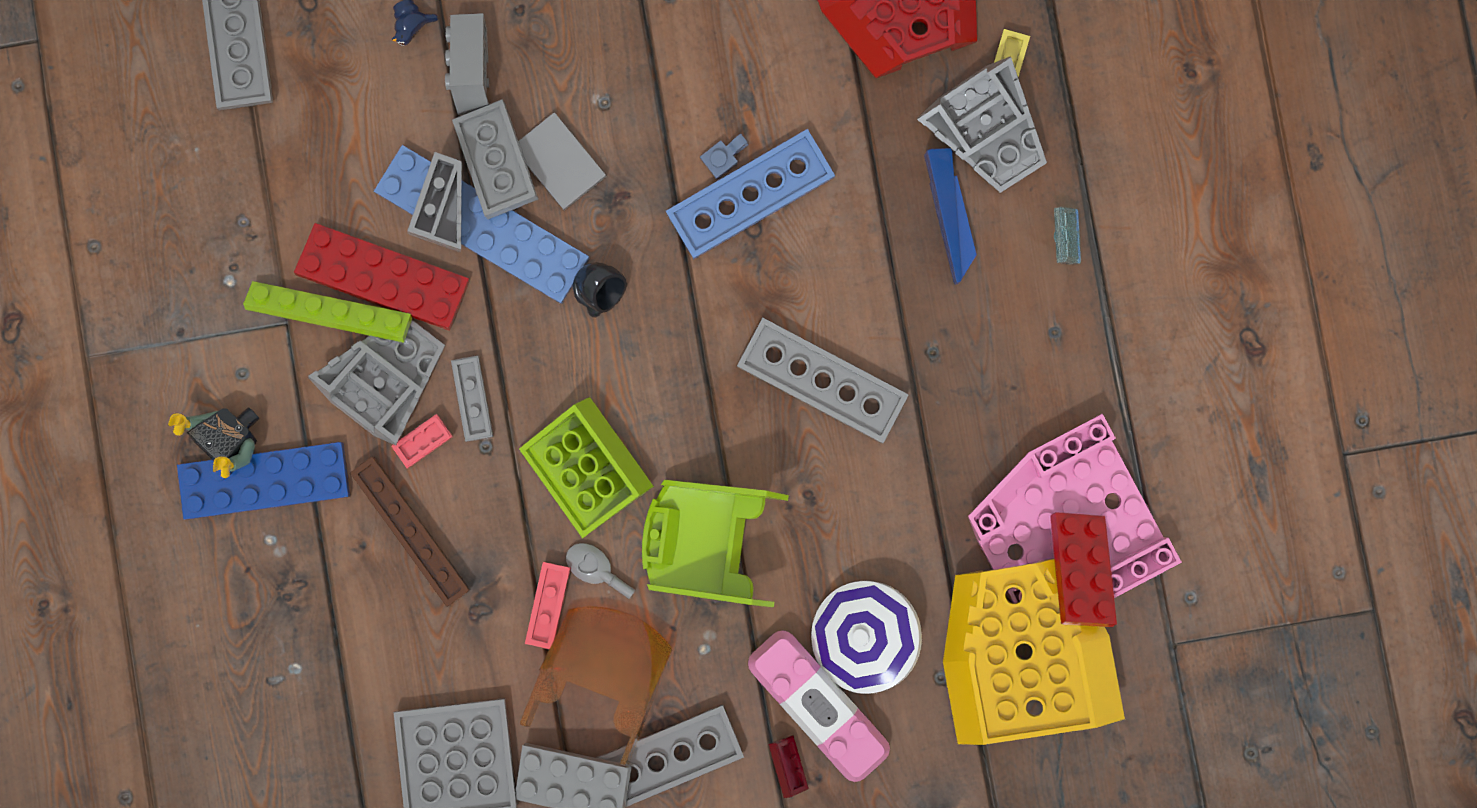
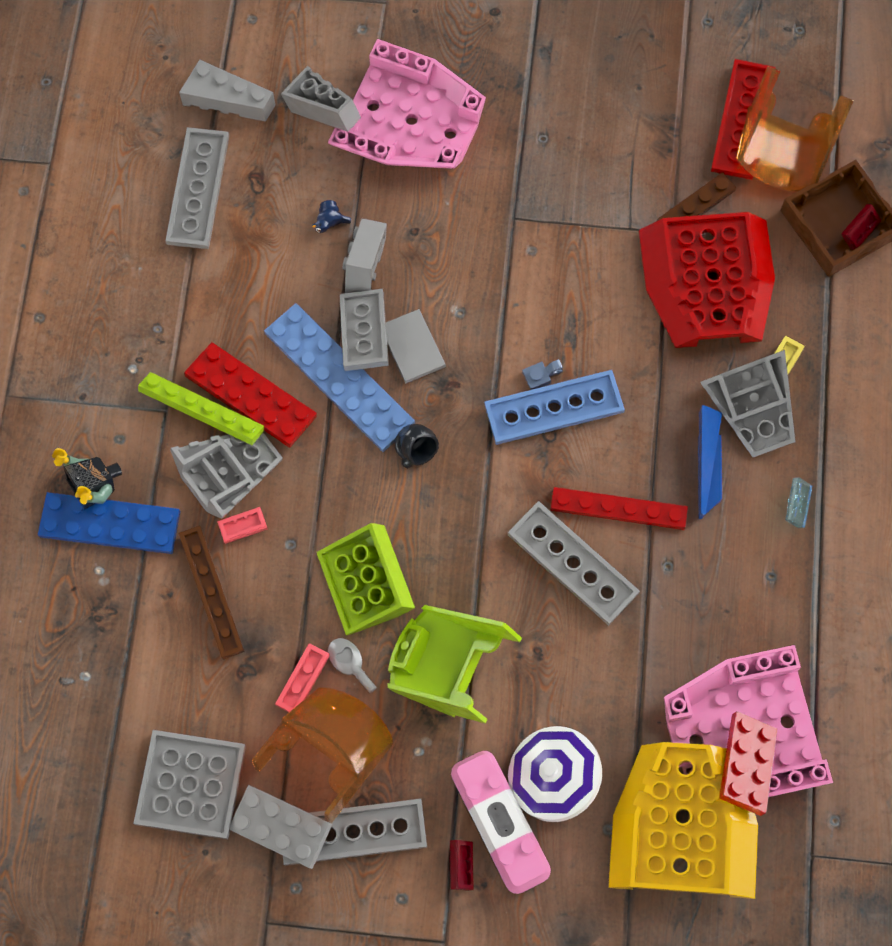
camera: 20 degrees right, 15 degrees down
(439, 204) = (310, 349): light grey wedge -> none
(472, 398) = (291, 504): light grey tile -> none
(858, 298) = (619, 508): none -> red plate

